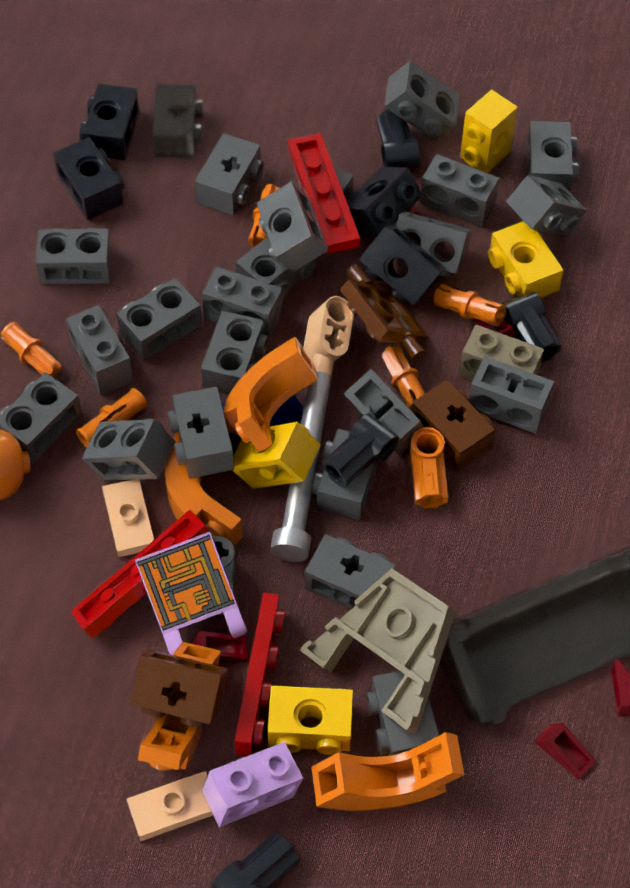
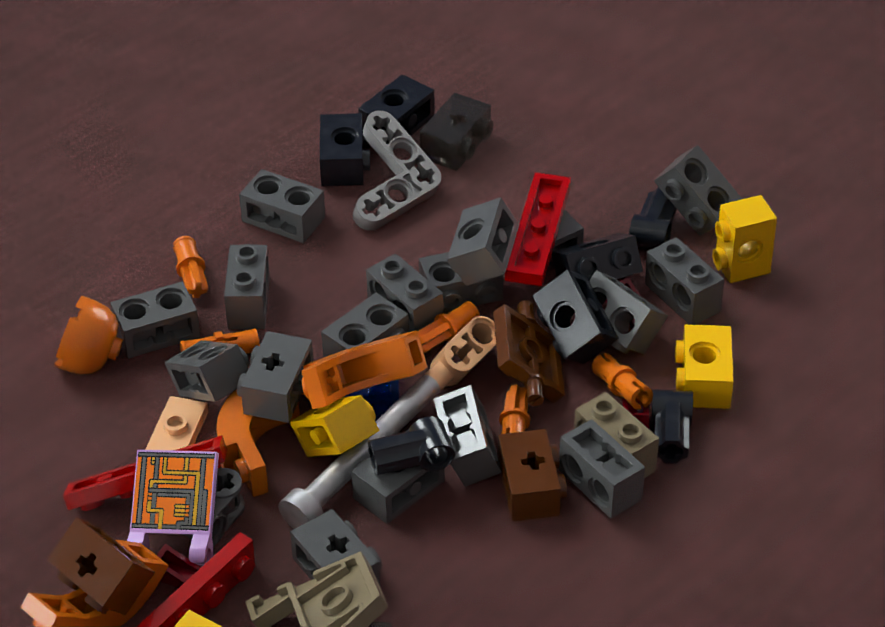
camera: 30 degrees right, 15 degrees down
(162, 324) = (320, 283): dark grey brick -> none
(165, 185) = (405, 171): none -> light grey beam
(228, 174) = (470, 185): dark grey brick -> none
(292, 314) = (447, 325): none -> orange axle
(428, 469) = (478, 501): orange piece -> none
(546, 206) = (756, 320): dark grey brick -> none
(551, 152) = (799, 288): dark grey brick -> none

